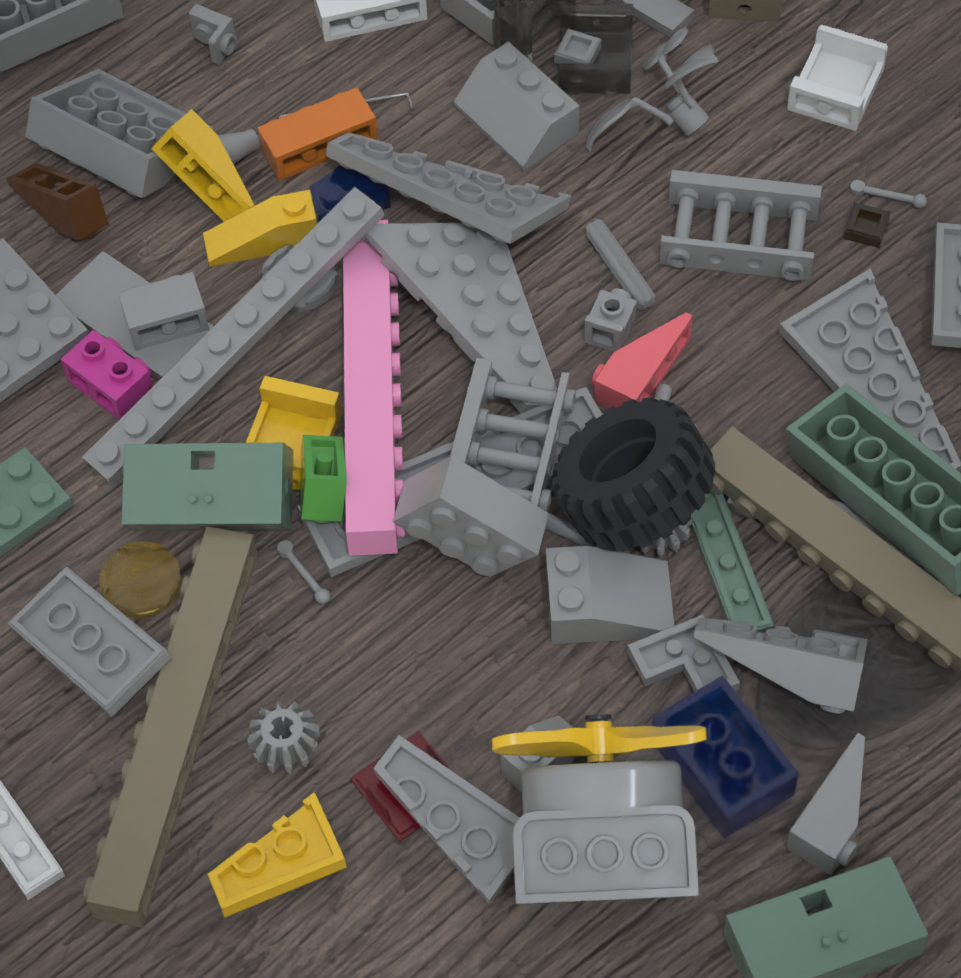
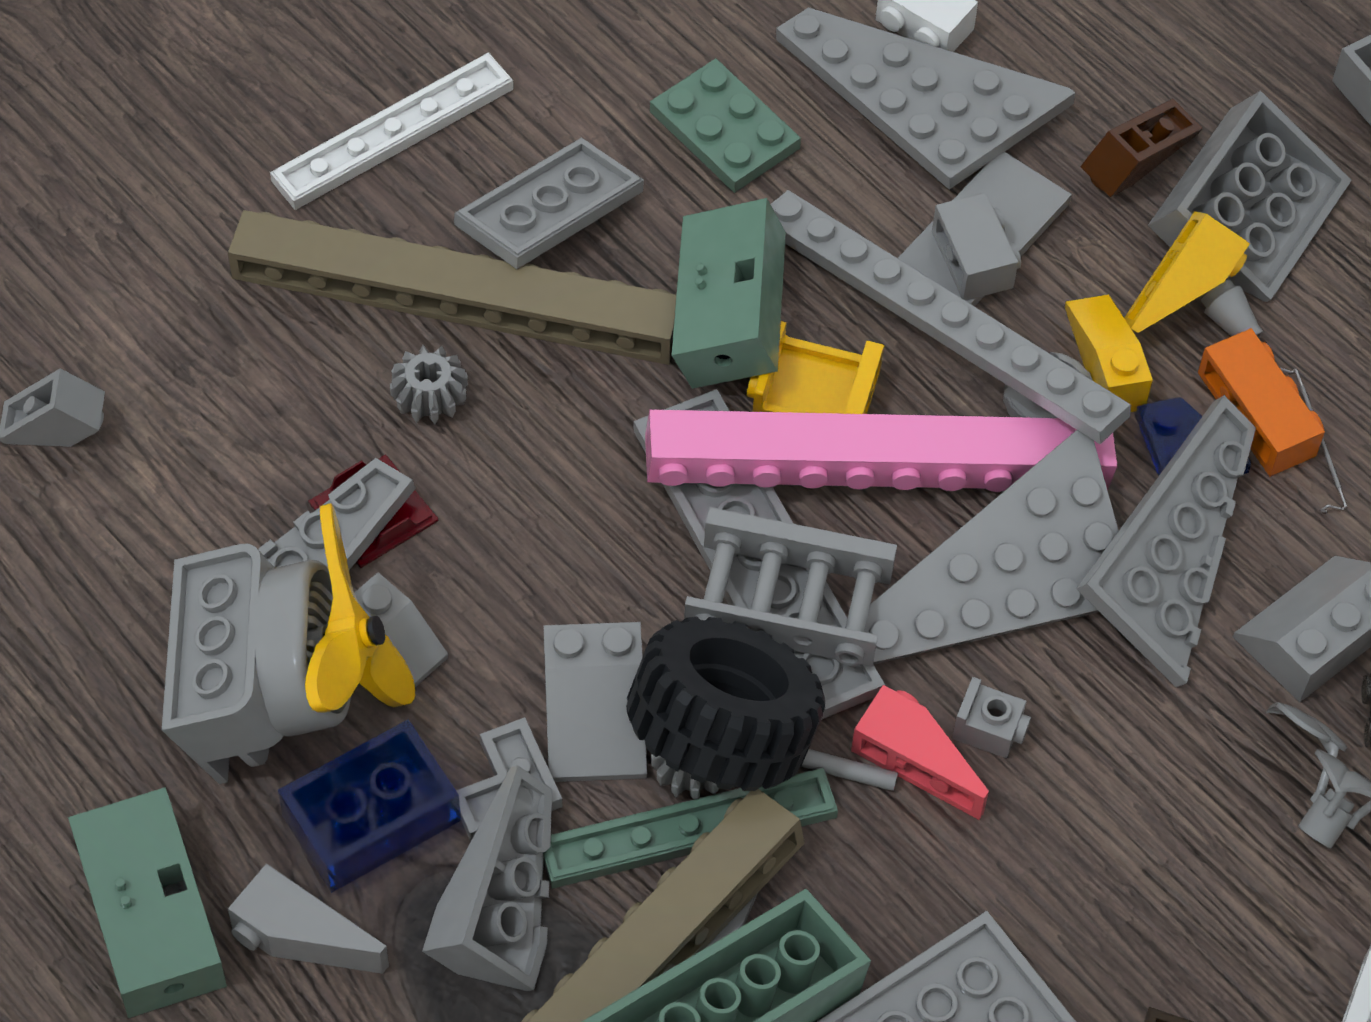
camera: 85 degrees right, 0 degrees up
(107, 373) = (896, 204): dark pink brick -> none
(140, 579) = (636, 252): clear yellow tile -> none
(282, 860) = (288, 389): yellow wing -> none
(286, 550) = (672, 390): light grey hinge -> none
(322, 478) = (737, 388): bright green slope -> none
(470, 517) = (666, 534): light grey brick -> none
(620, 263) = (1082, 737): light grey axle -> none
(742, 195) = (1190, 859): light grey fence -> none

